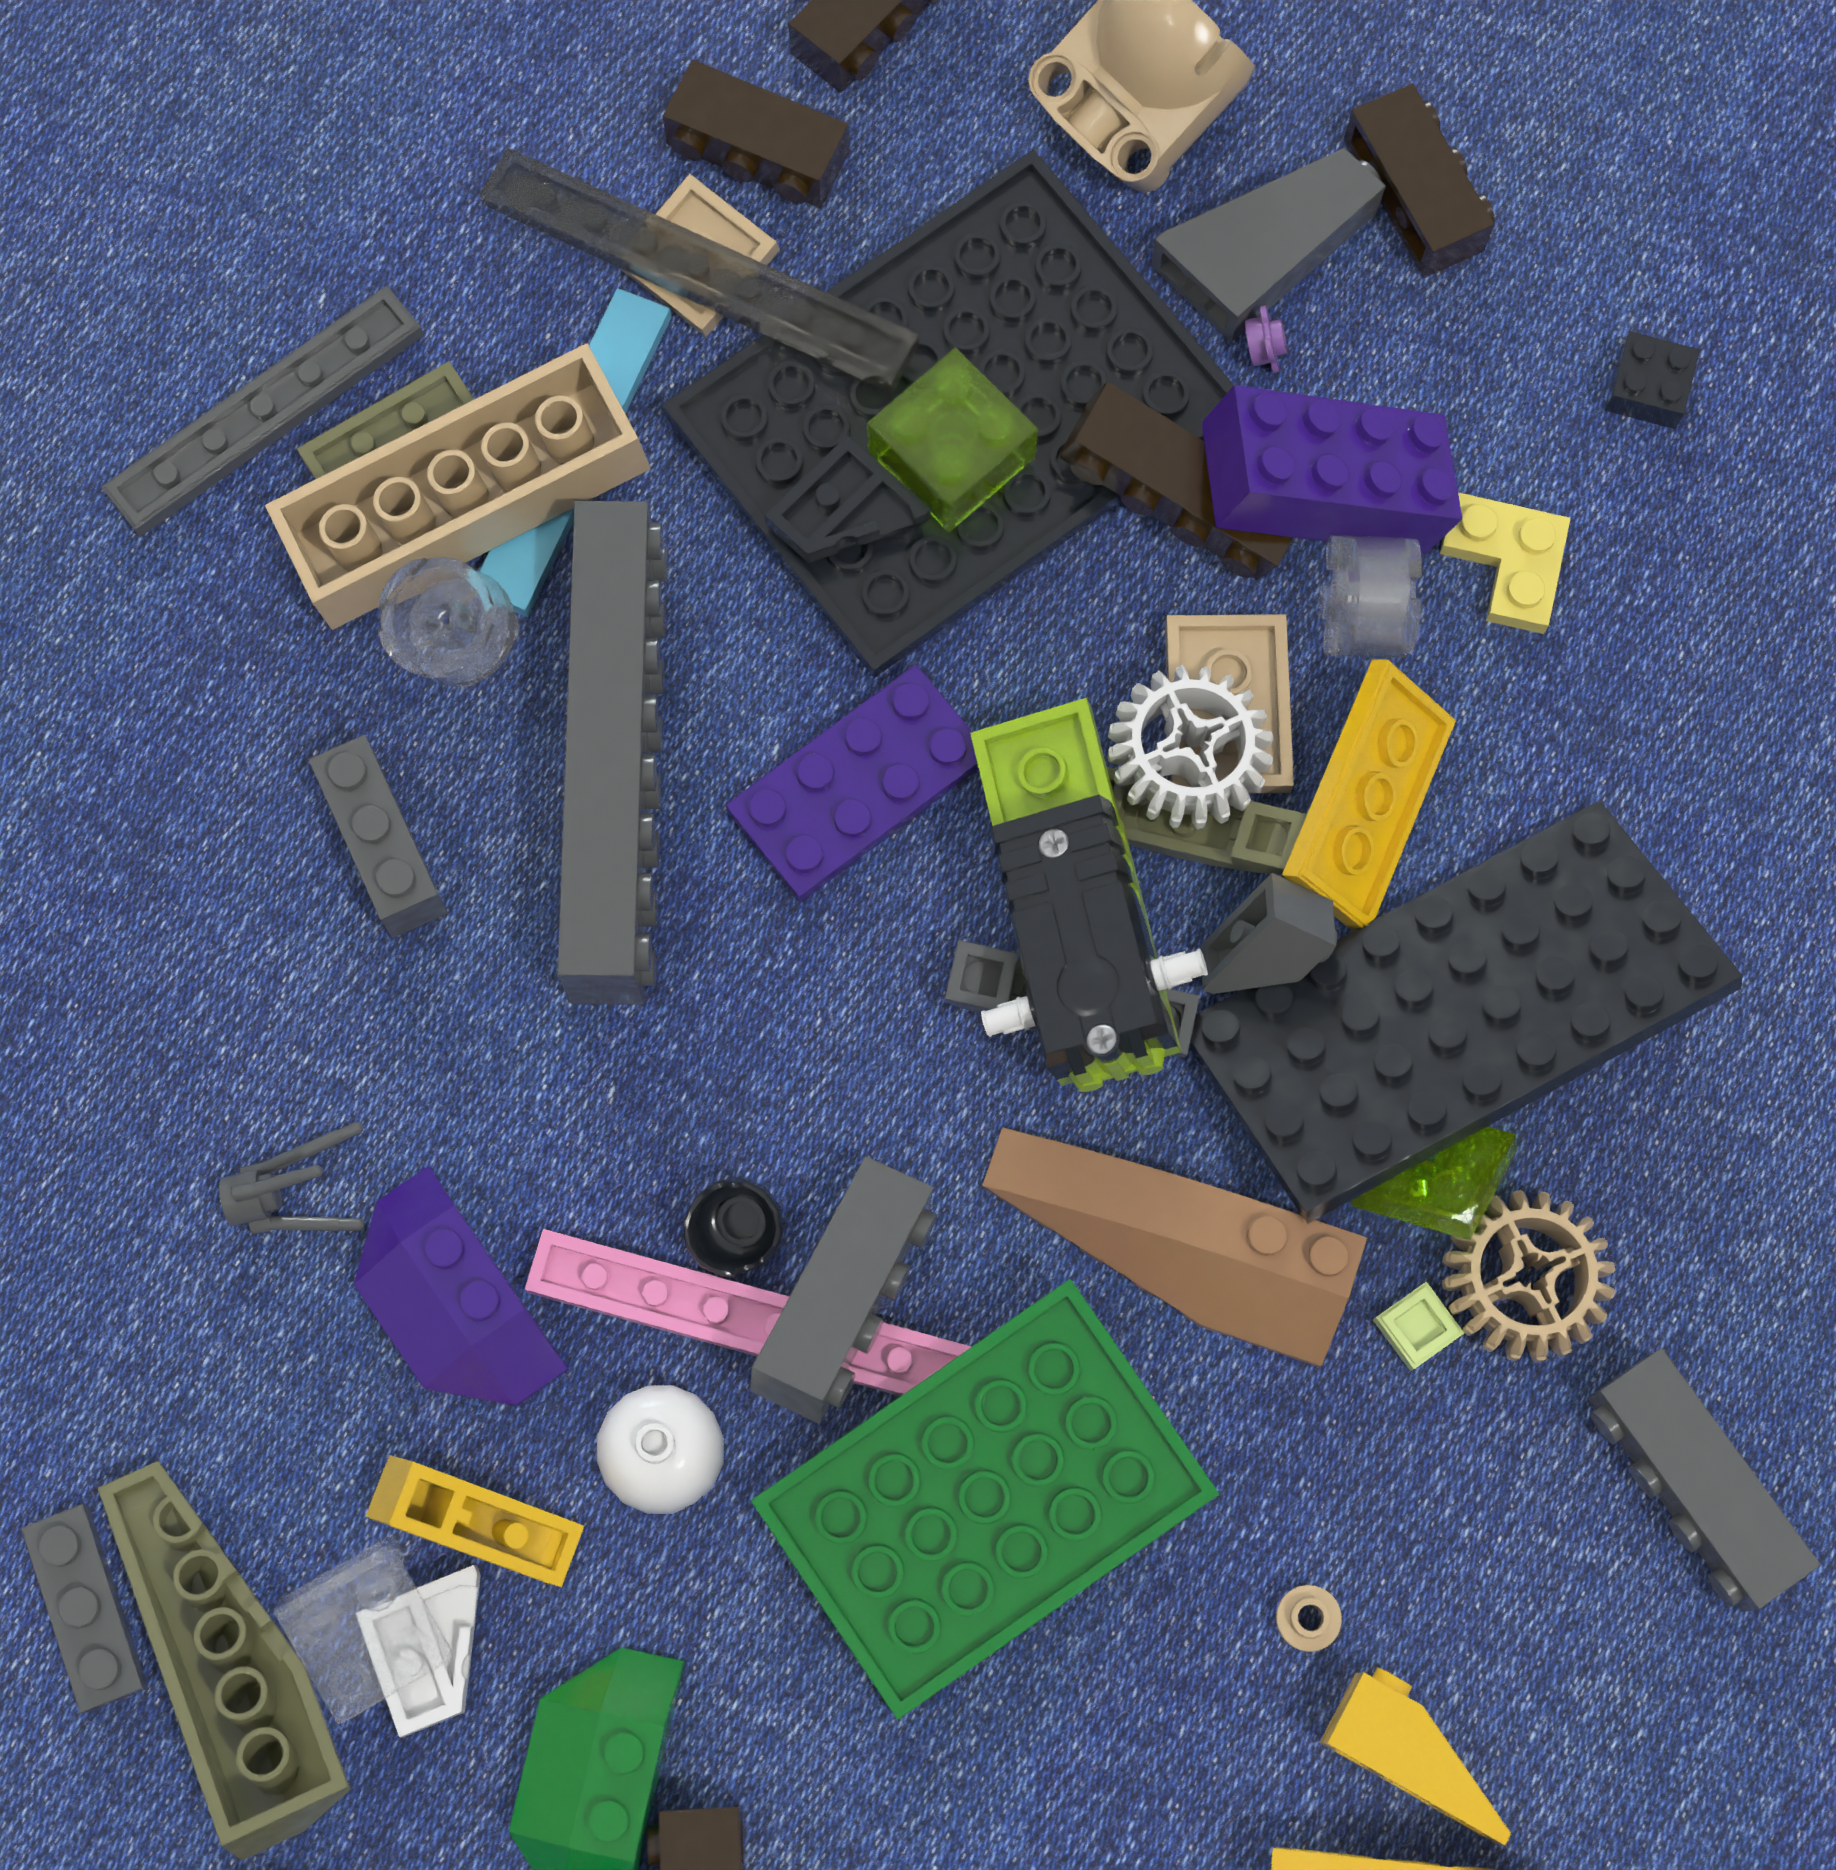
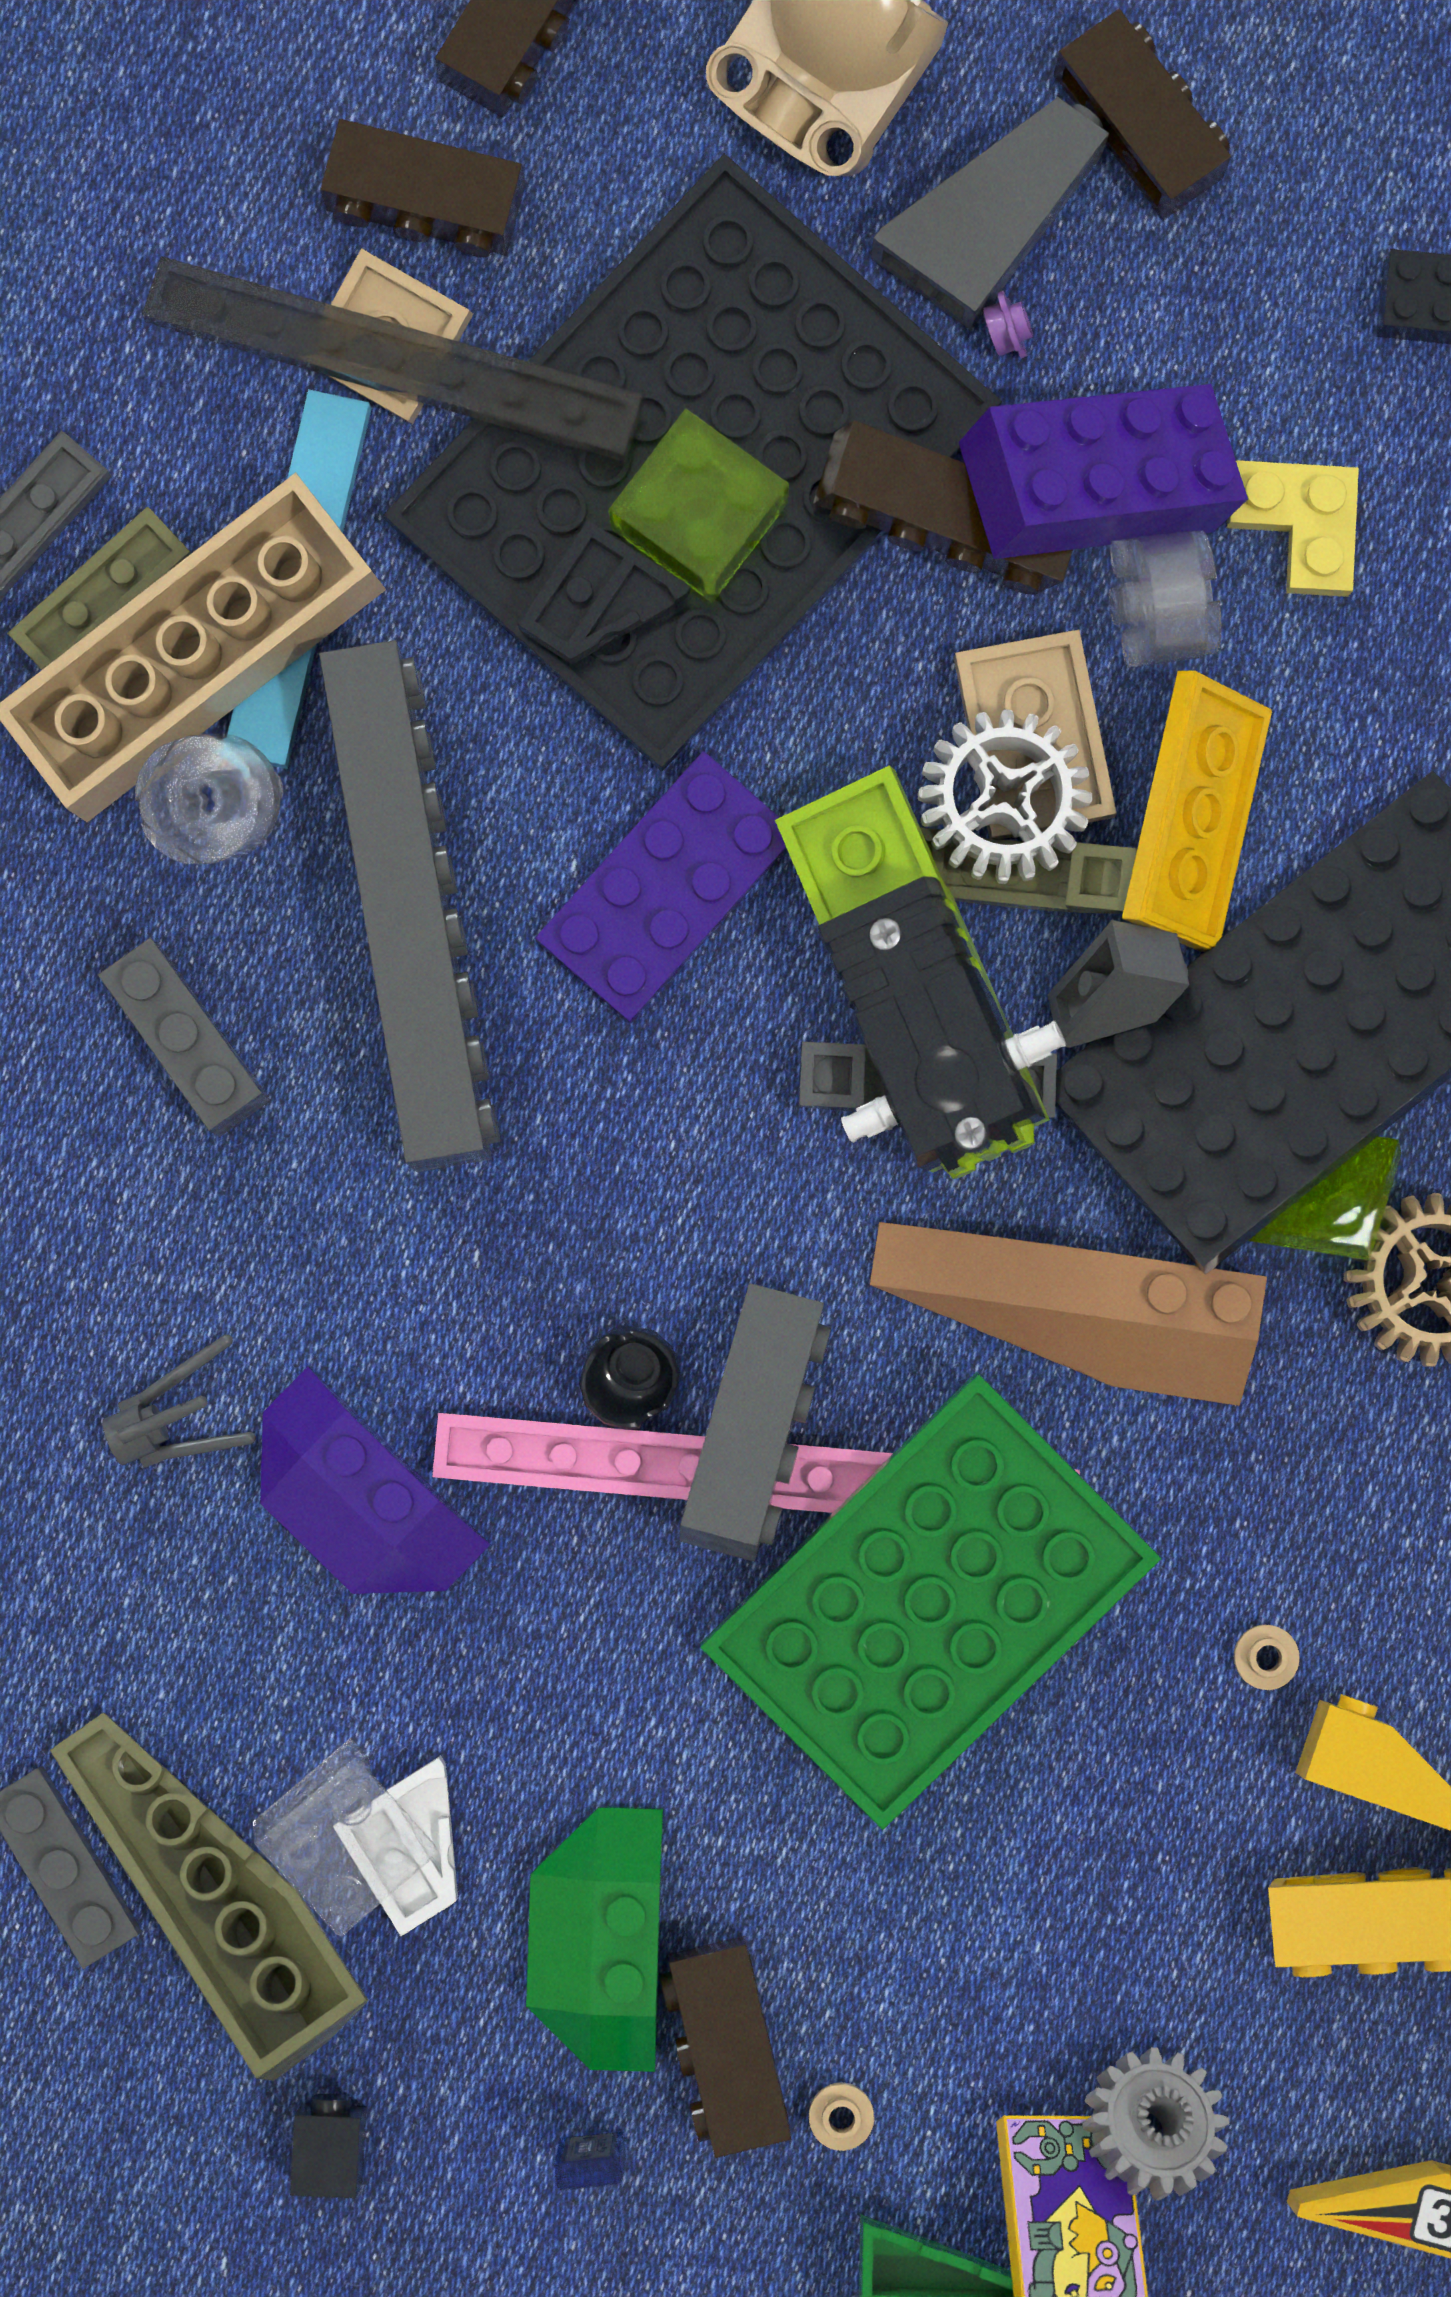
camera: 10 degrees left, 10 degrees up
(474, 1521) = (428, 1714): yellow slope -> none
(660, 1449) = (598, 1608): white cylinder -> none
(1418, 1326) = (1329, 1348): yellowish green tile -> none

